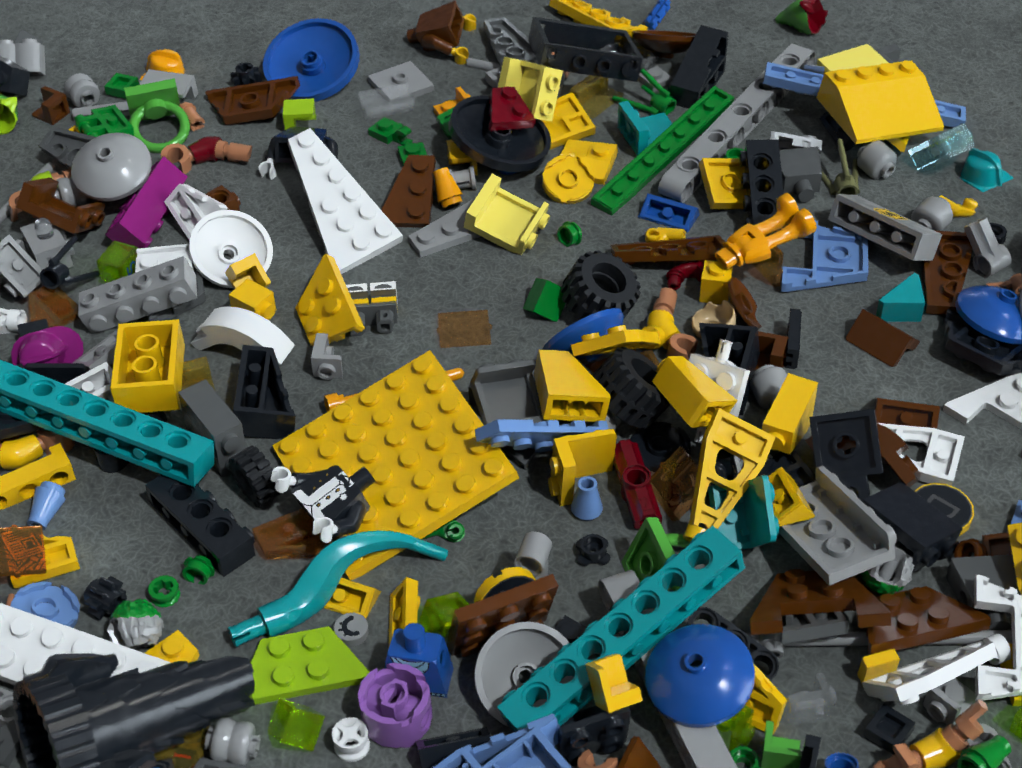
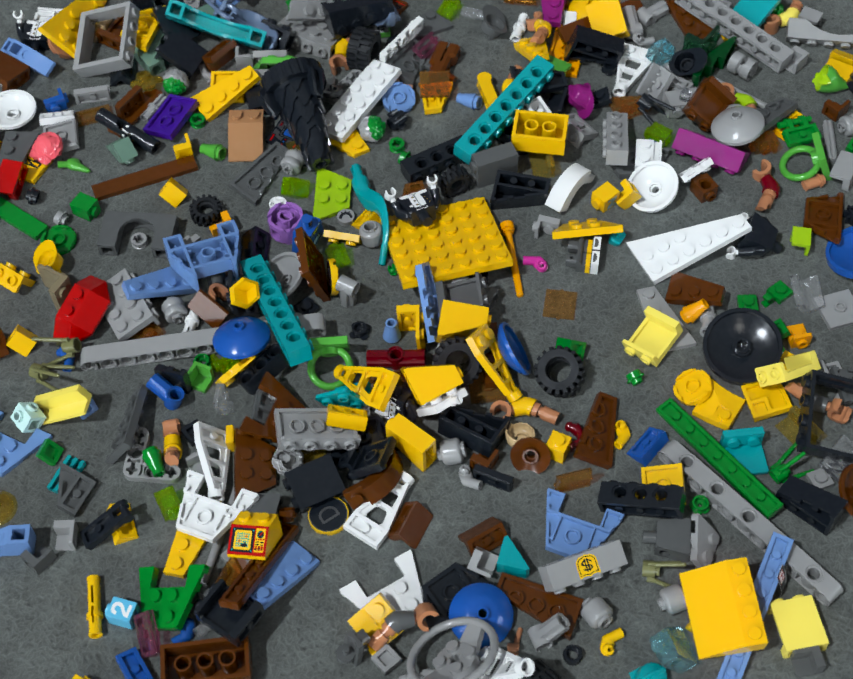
camera: 105 degrees right, 10 degrees up
(391, 566) = (371, 234): none -> light grey head
(396, 359) = (537, 262): none -> dark pink arm
(508, 110) = (762, 350): dark red wing -> none
(749, 242) = (568, 458): light orange piece -> none
(806, 366) = (467, 478): none -> light grey arm
(927, 325) = (483, 562): none -> light grey panel

